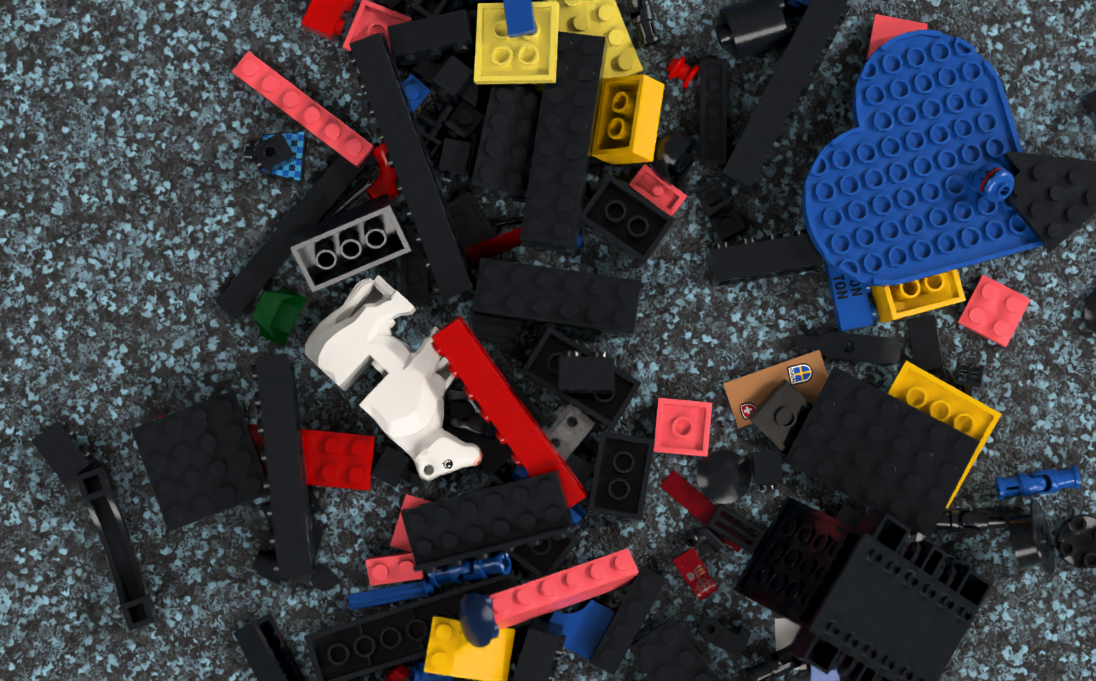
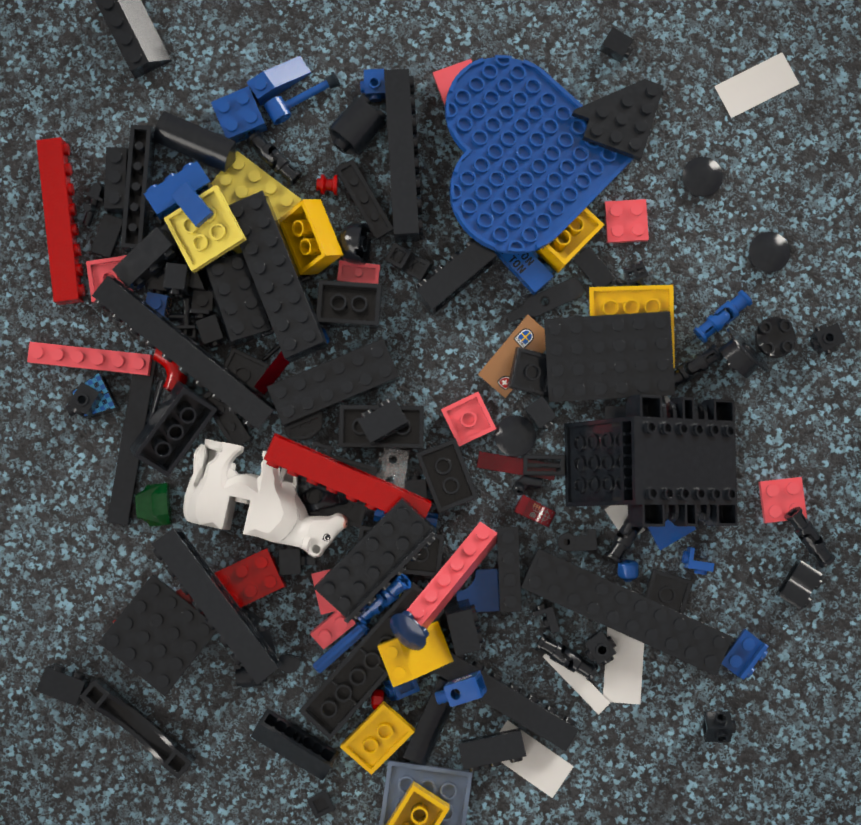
camera: 30 degrees left, 0 degrees up
(993, 182) = (576, 135): blue head -> none

